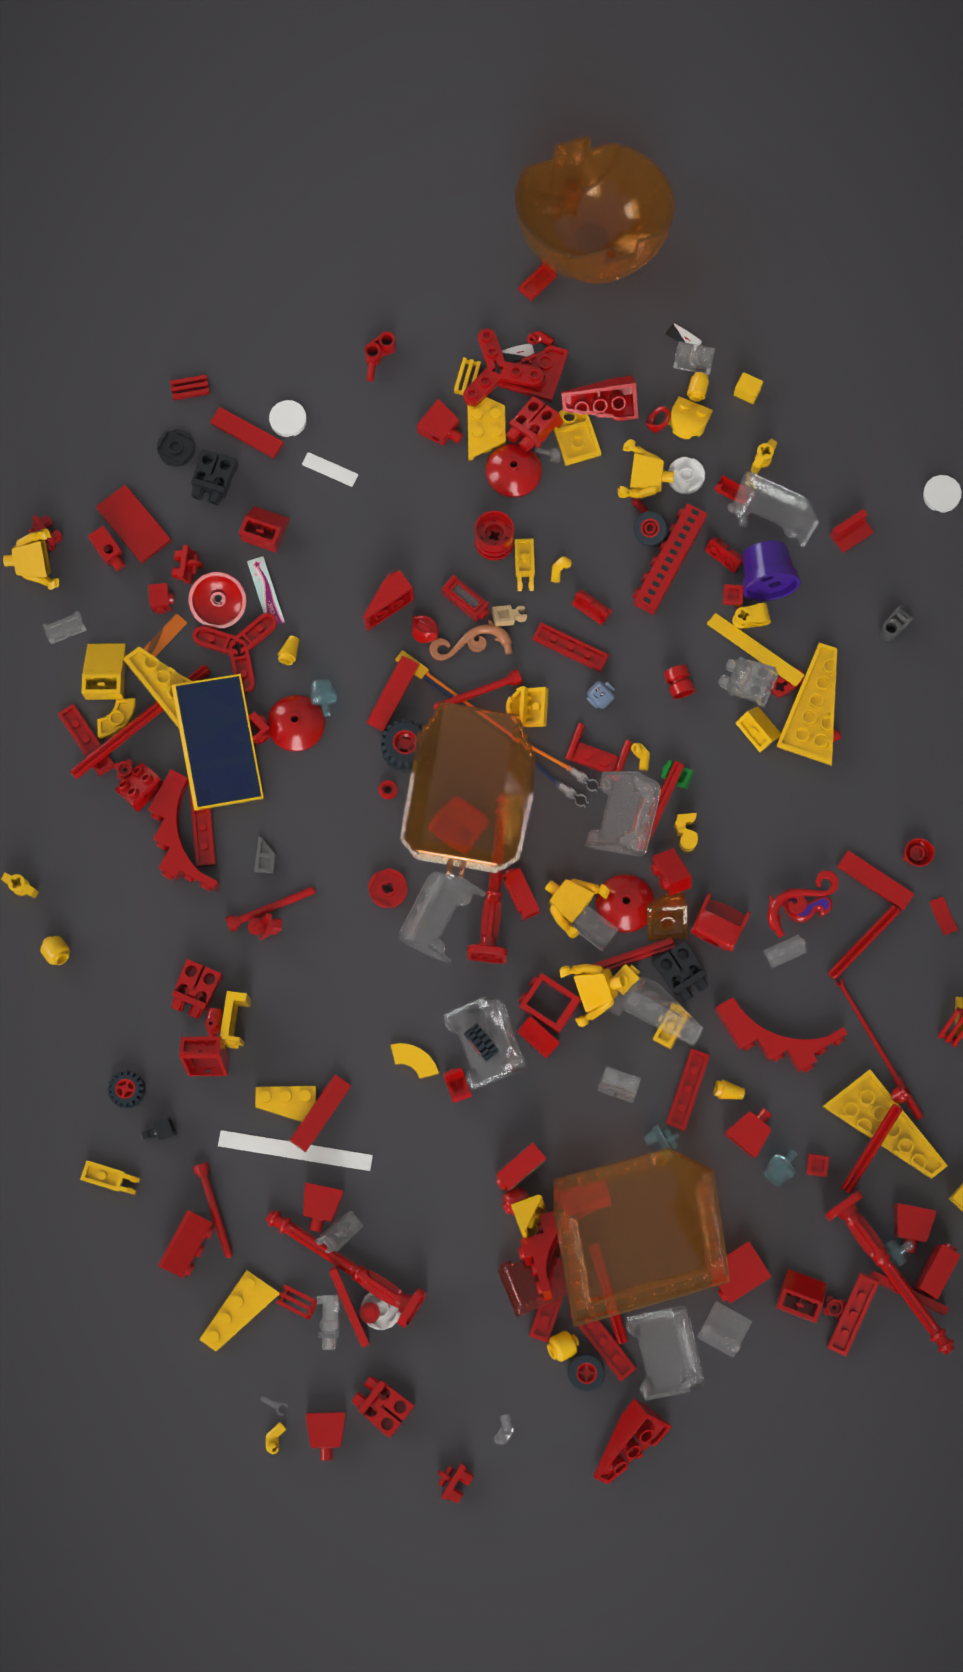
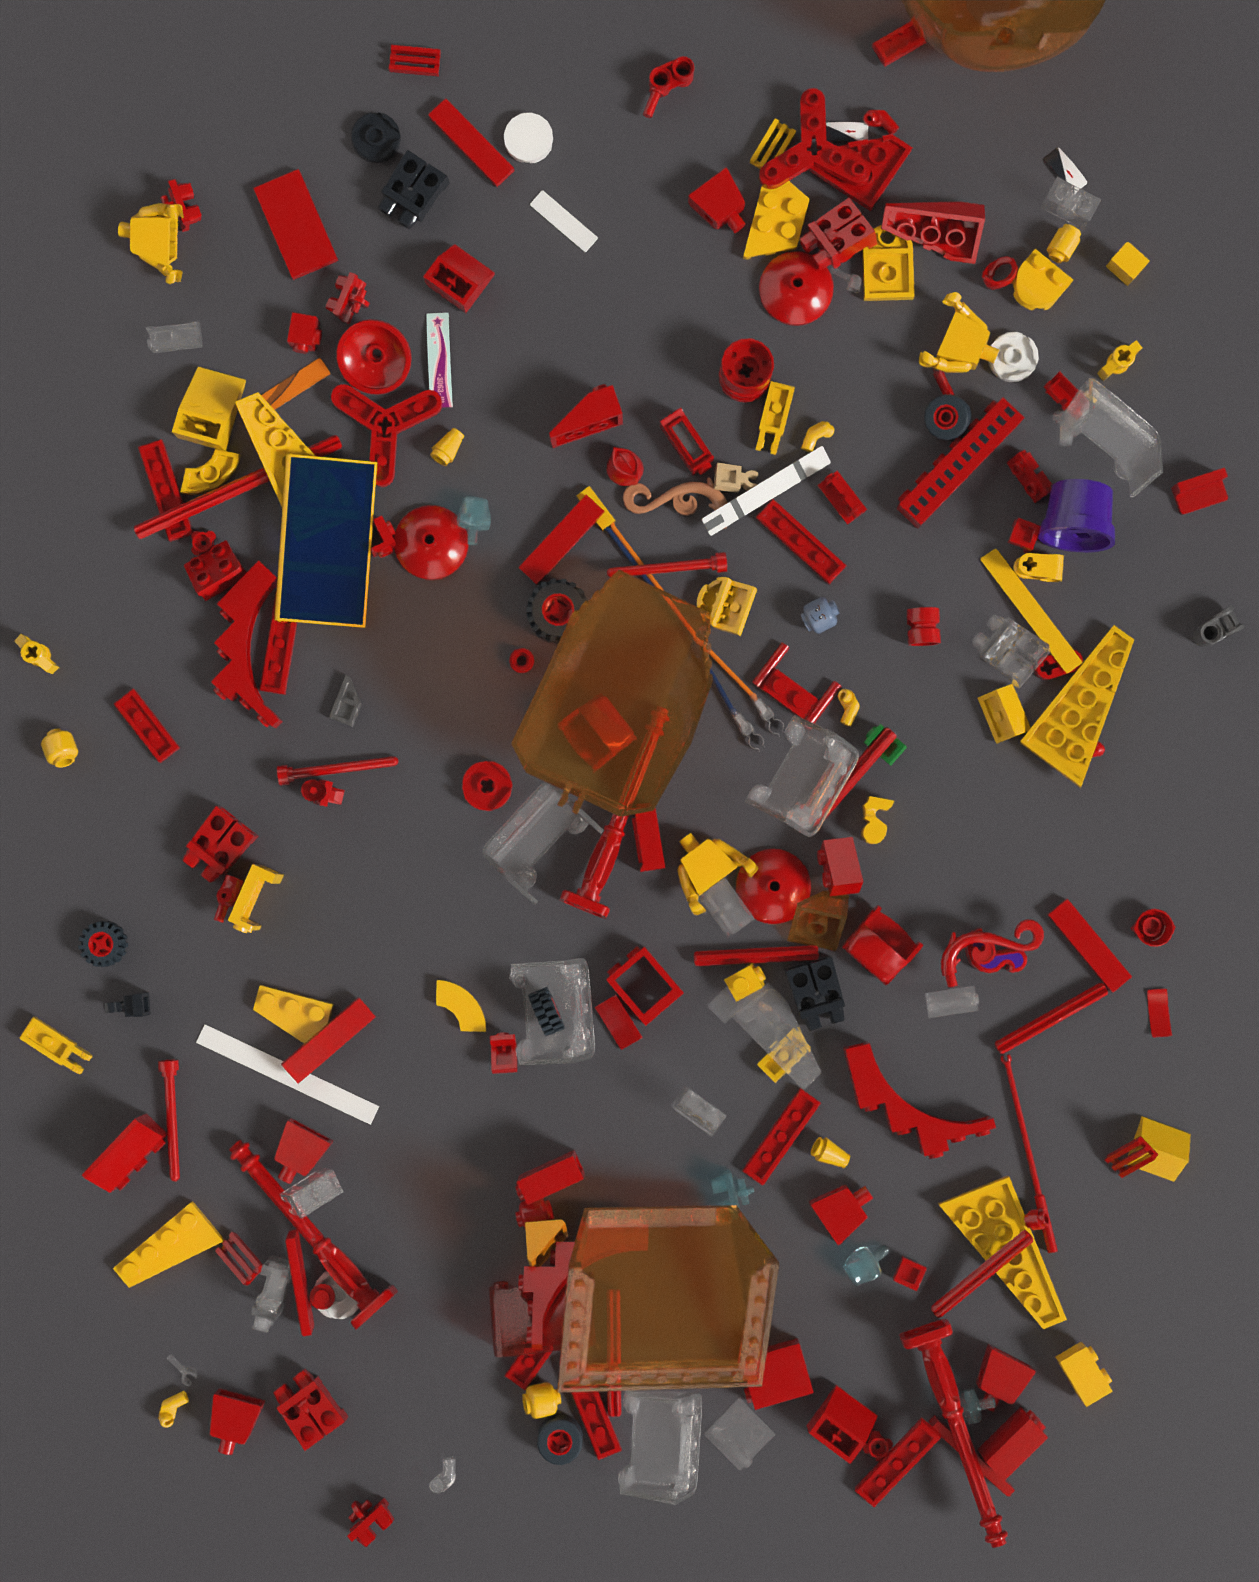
camera: 15 degrees right, 10 degrees up
(103, 543) = (249, 240): red torso -> none
(117, 916) = (146, 725): none -> red tile
(212, 1056) = (200, 930): red window -> none
(534, 617) = (766, 490): none -> white sticker
(595, 987) = (705, 985): yellow torso -> none
(633, 1434) = (596, 1523): red wedge -> none

